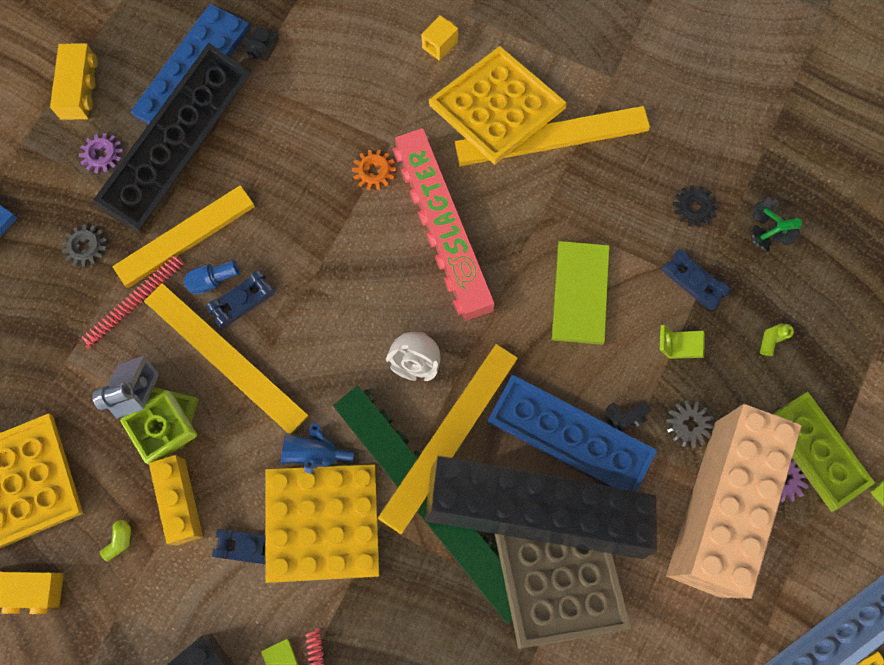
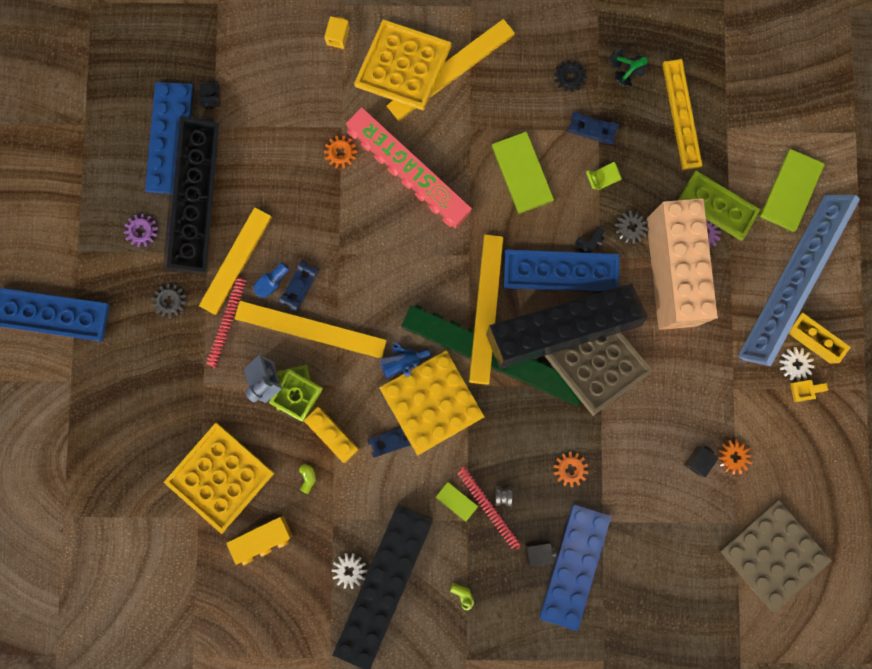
camera: 30 degrees left, 10 degrees up
(73, 81) = (91, 187): yellow brick -> none
(414, 356) = (436, 267): white cylinder -> none
(774, 335) = (659, 142): lime arm -> none
(819, 316) = (682, 114): none -> yellow tile

